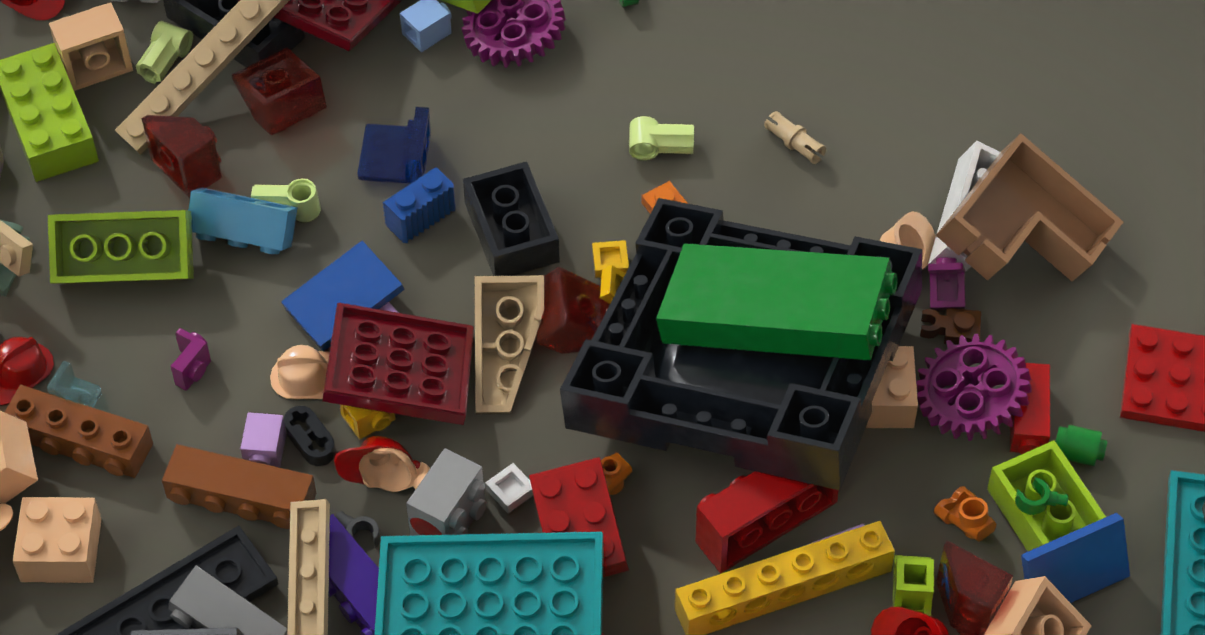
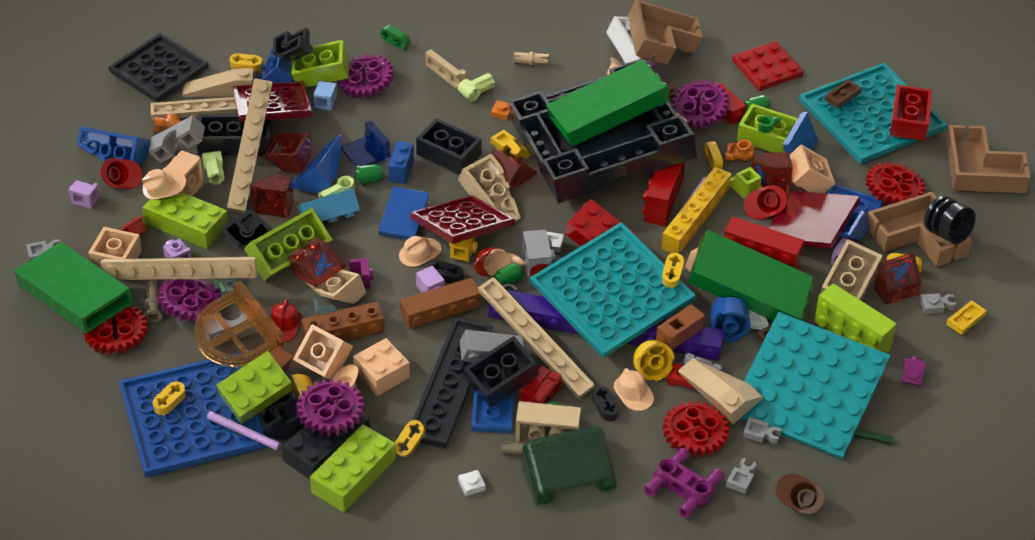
camera: 40 degrees left, 10 degrees down
(36, 42) = (163, 183): none -> light nougat piece
(97, 185) = (245, 229): none -> black brick
(122, 351) = (342, 286): none -> tan wedge
(123, 303) = (315, 262): none -> clear red slope
(288, 154) = (322, 170): none -> blue wedge
(359, 195) = (369, 174): none -> green brick
(385, 503) = (509, 274): none -> green brick
(645, 104) = (444, 69): none -> tan hinge
(915, 494) = (713, 155): none -> yellow beam

